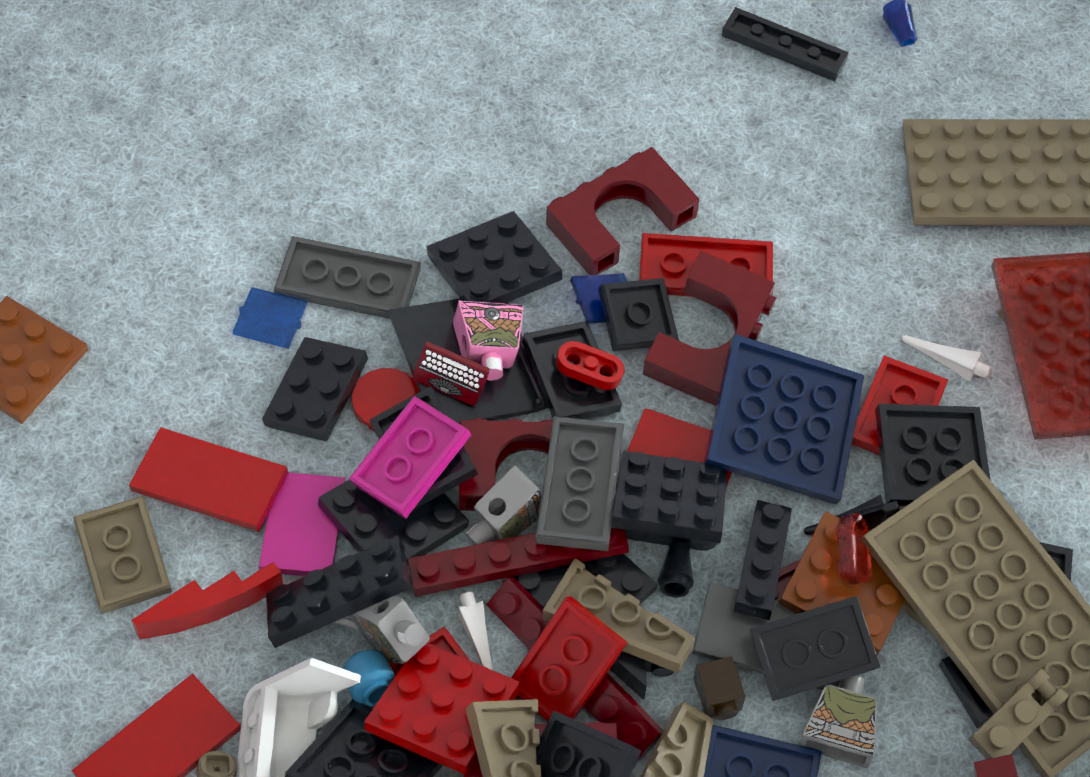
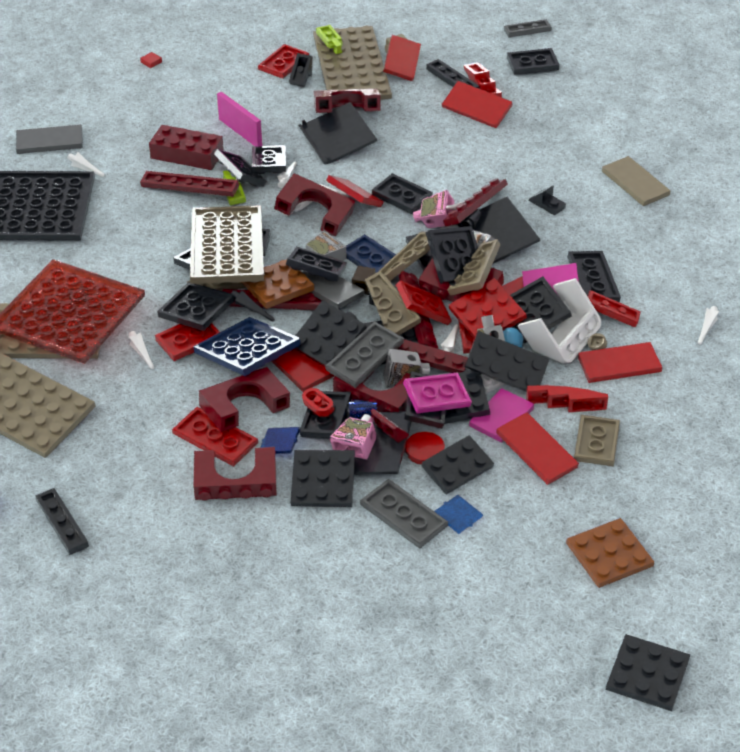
camera: 145 degrees left, 15 degrees down
(519, 395) = (359, 408): none -> clear blue cone
(636, 313) = (271, 422): black tile -> none
(763, 560) = (306, 305): black plate -> none
(854, 555) = (276, 273): clear red plate -> none
(1017, 717) = (257, 216): dark tan plate -> none

